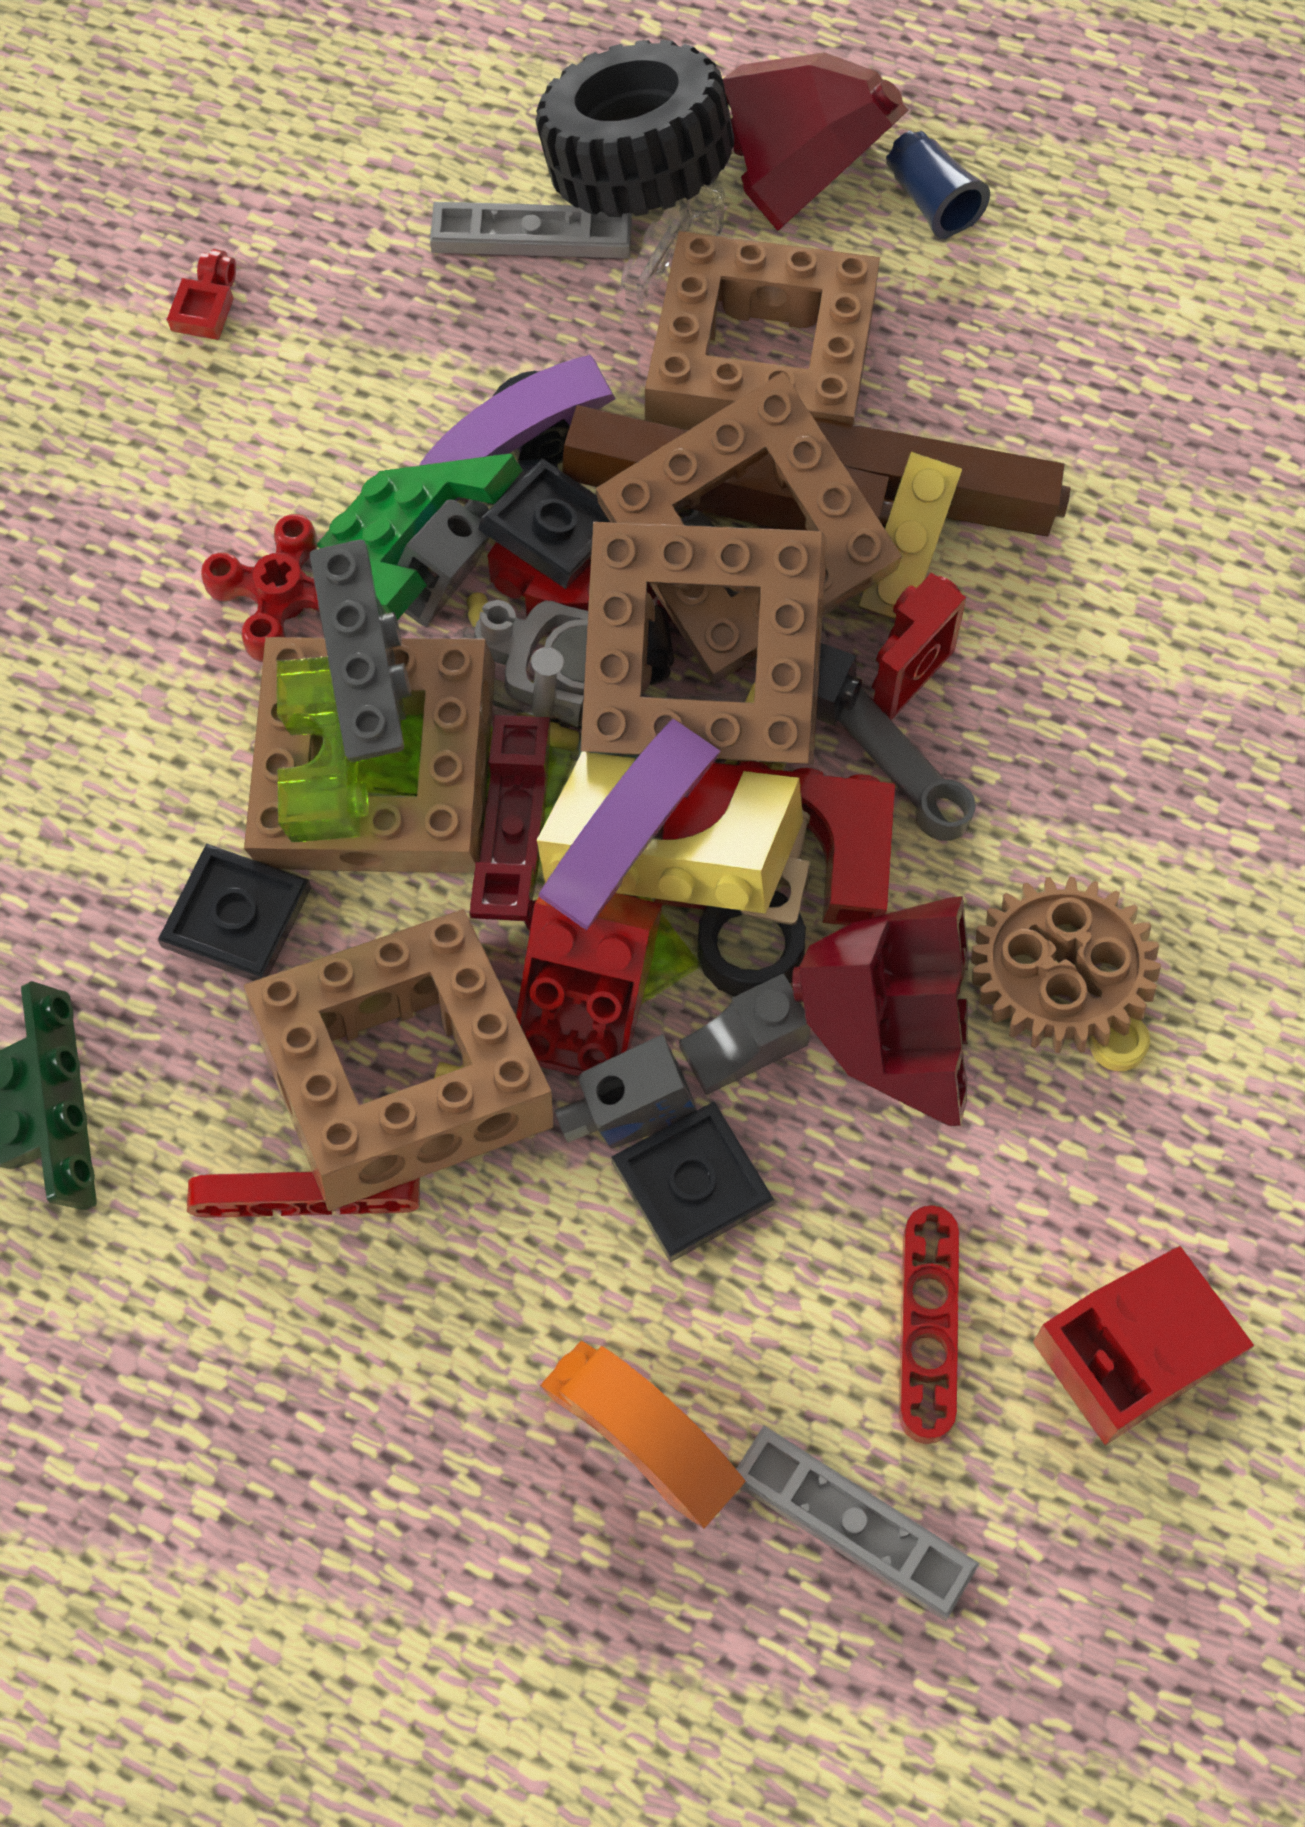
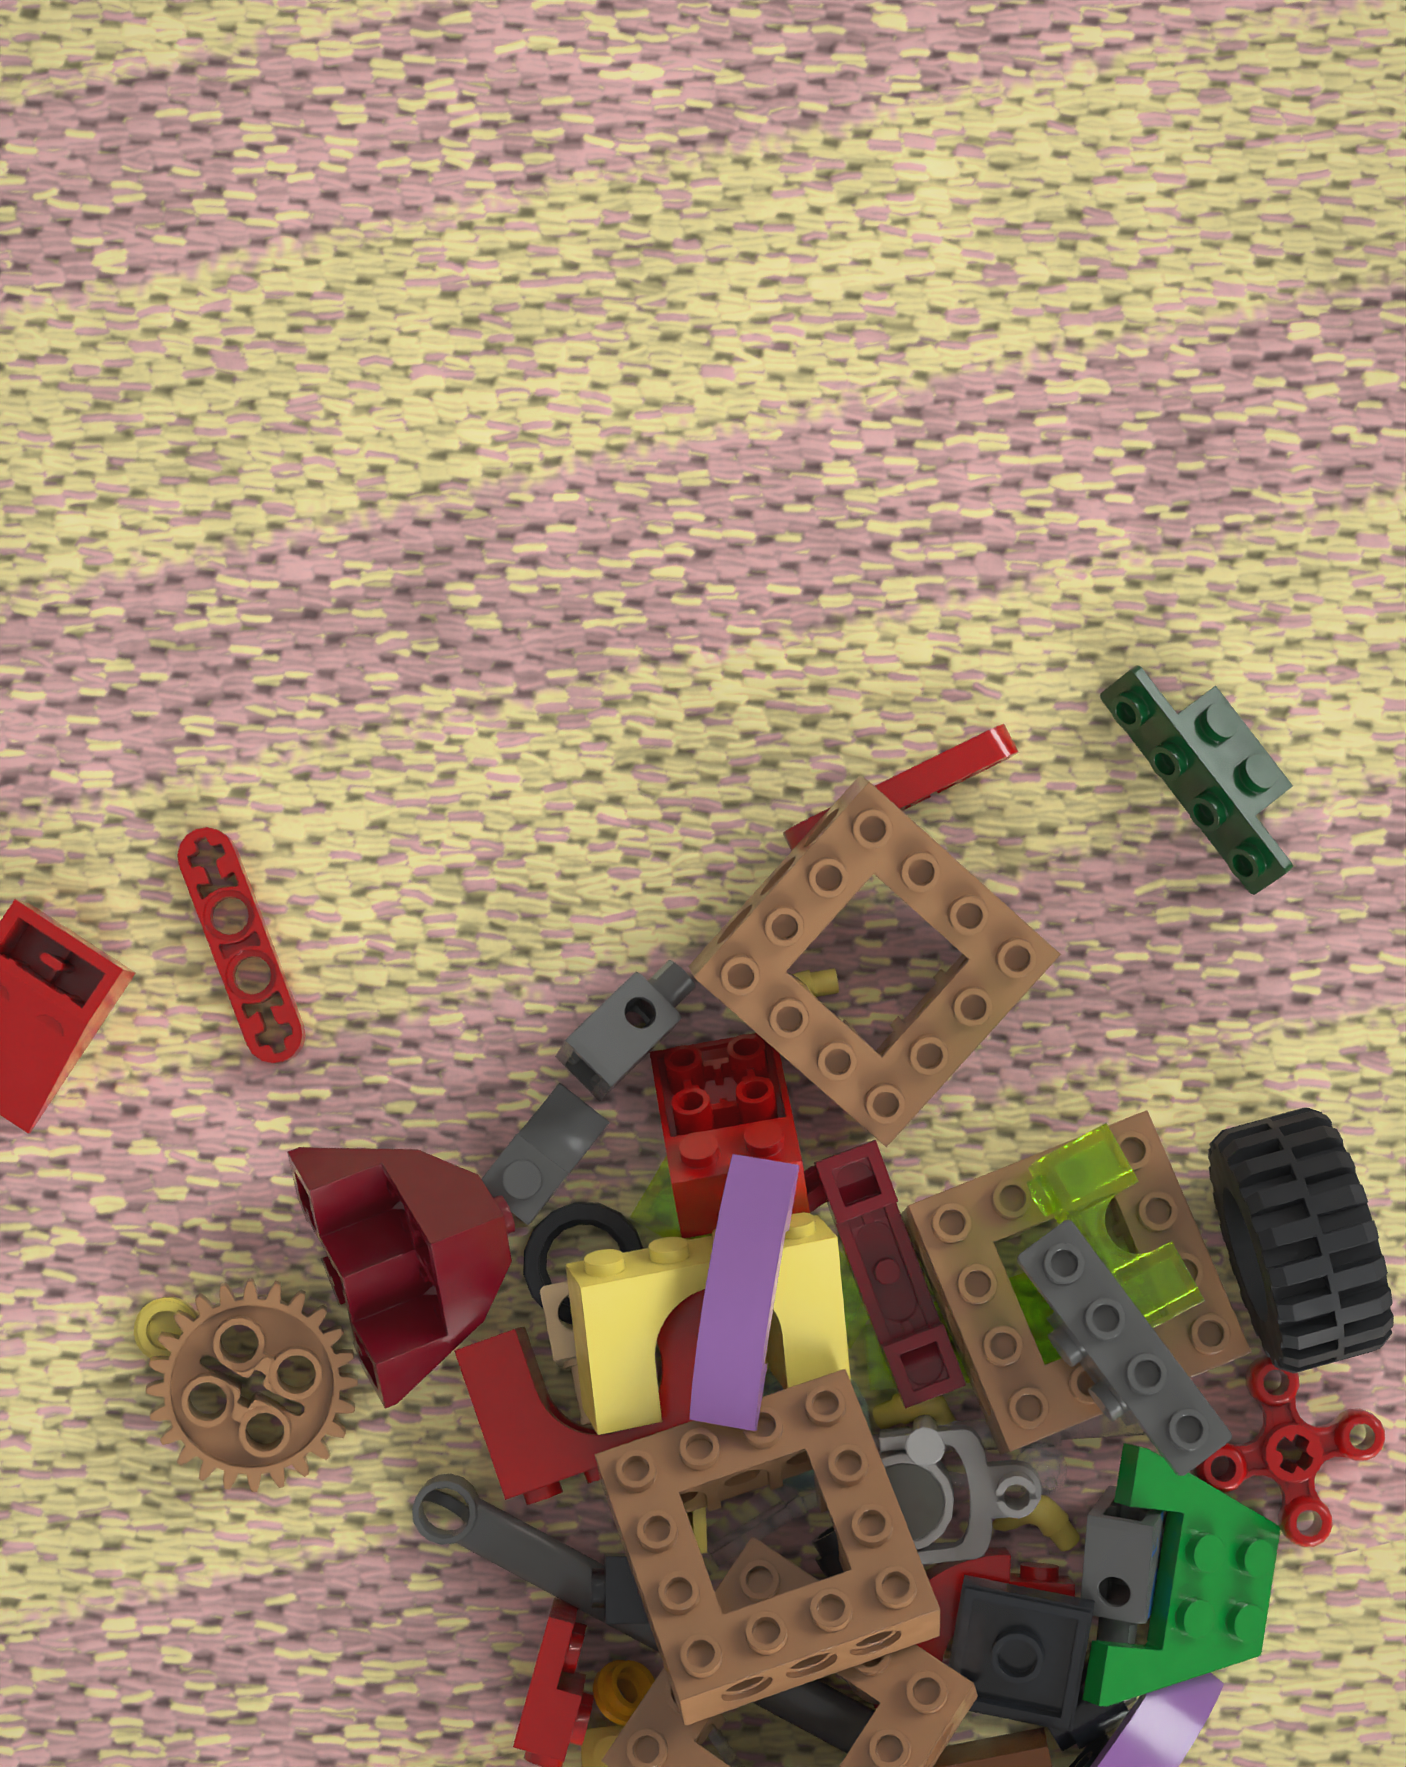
camera: 150 degrees right, 20 degrees up
(180, 692) = (1301, 1240): none -> black tyre
(234, 913) = (1128, 1052): black plate -> none
(646, 1429) = (465, 707): orange arch -> none
(692, 1181) = (529, 980): black plate -> none
(853, 628) = (631, 1679): none -> light orange plate
(856, 1523) = (234, 722): light grey plate -> none

